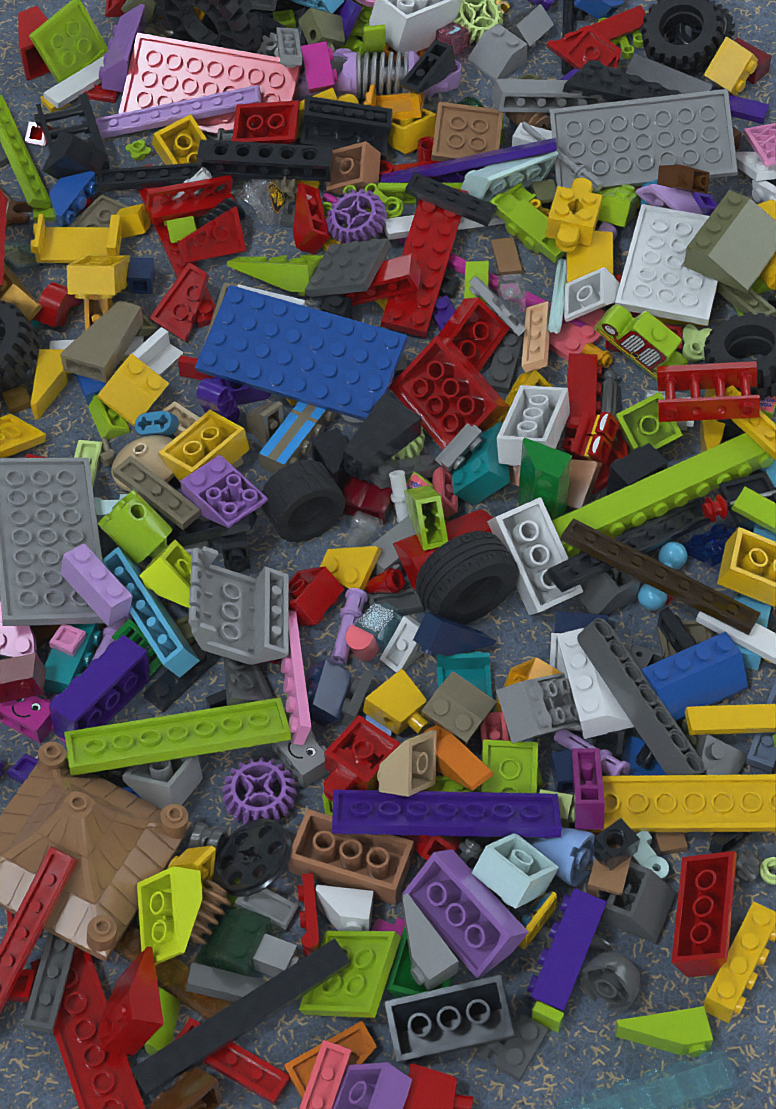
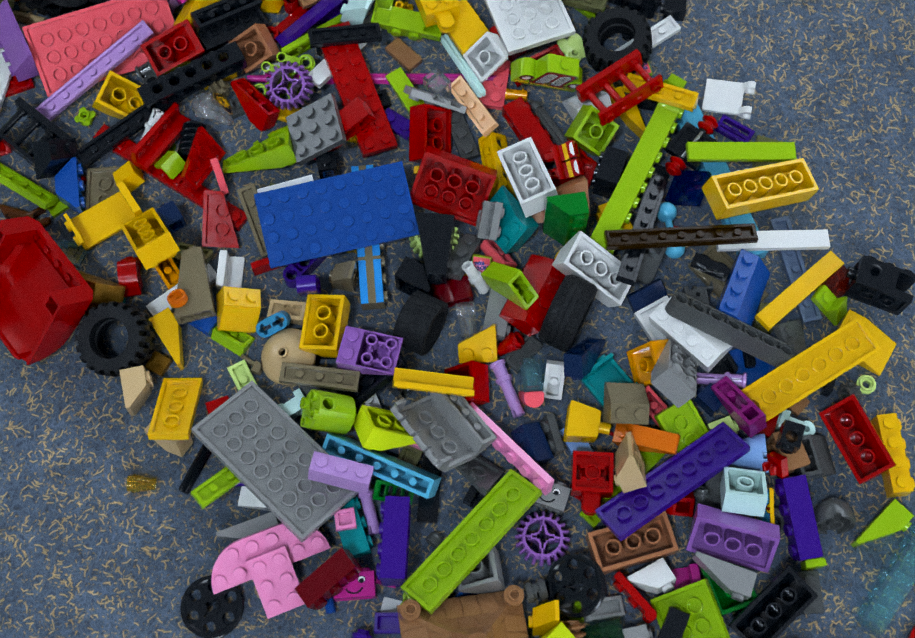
camera: 35 degrees left, 15 degrees up
(76, 336) = (177, 298): none -> orange tile
(218, 264) = (219, 175): none -> coral tile
(262, 558) = (433, 382): none -> yellow fence
(578, 871) = (776, 465): none -> red tile

